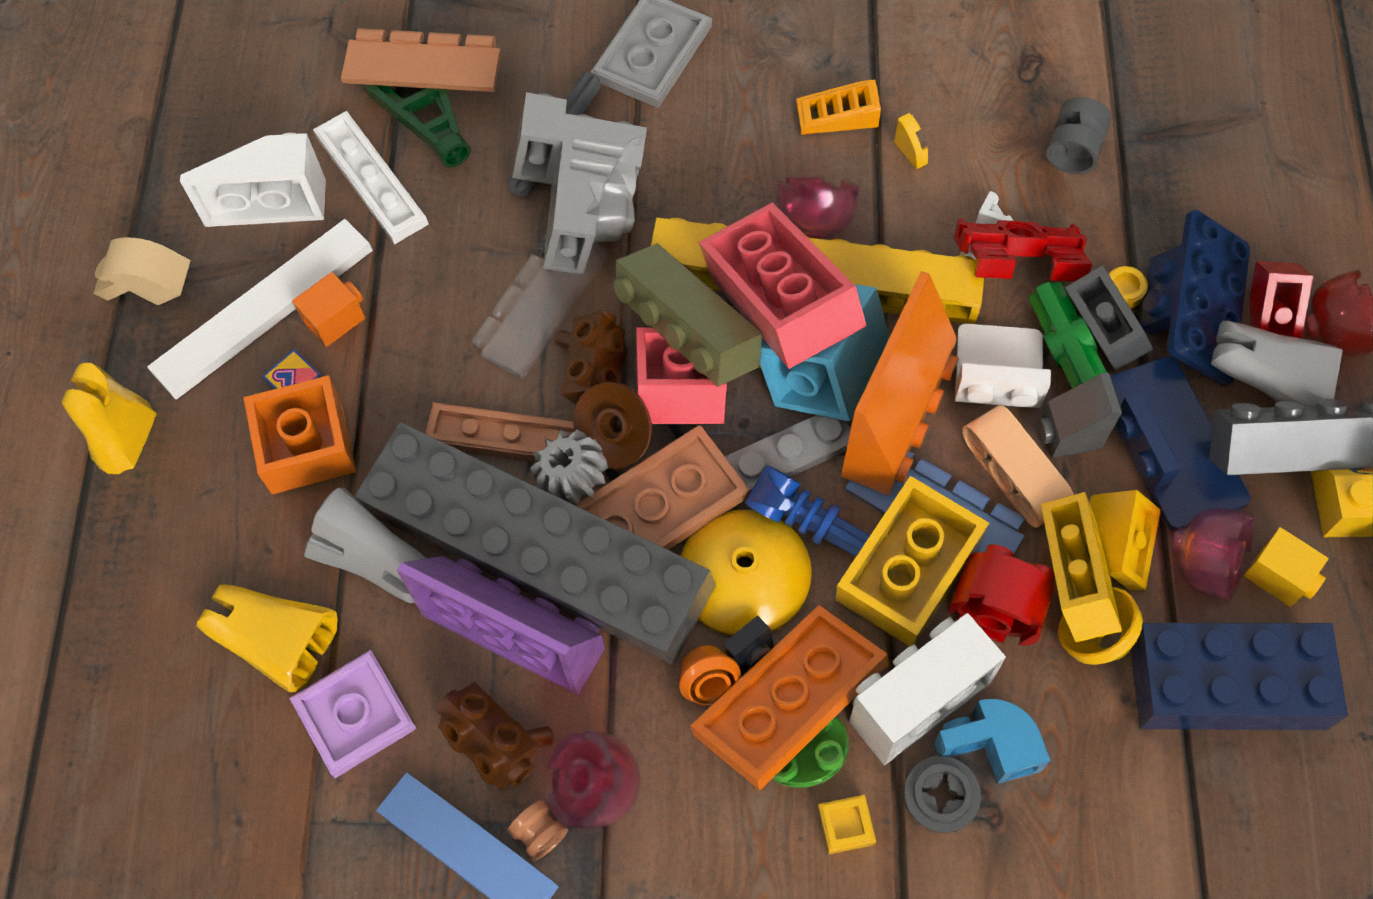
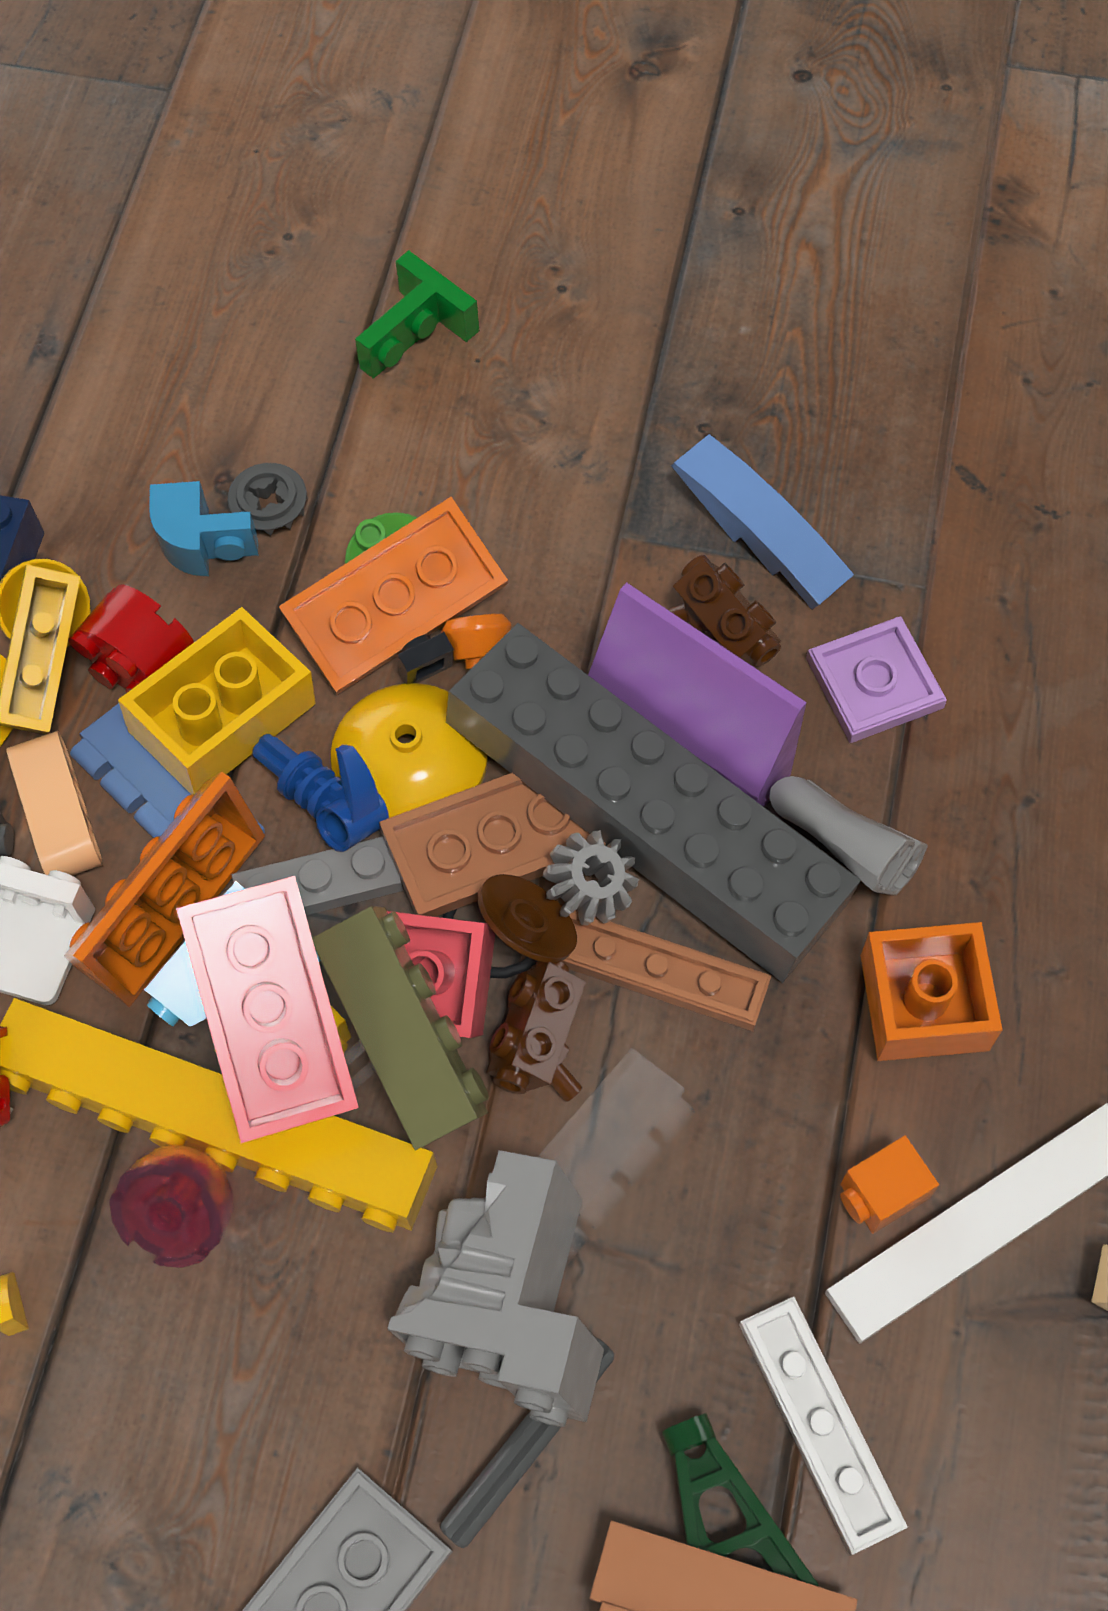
camera: 170 degrees left, 0 degrees up
(259, 183) = (962, 1397): white slope -> none
(271, 633) = (972, 769): yellow piece -> none
(289, 371) = (941, 1101): tile -> none
(537, 830) = (685, 525): nougat wheel -> none
(592, 780) = (620, 543): clear pink cylinder -> none
(846, 824) = (371, 491): yellow tile -> none
(848, 95) = (38, 1381): light orange slope -> none
(924, 687) = (248, 561): white brick -> none

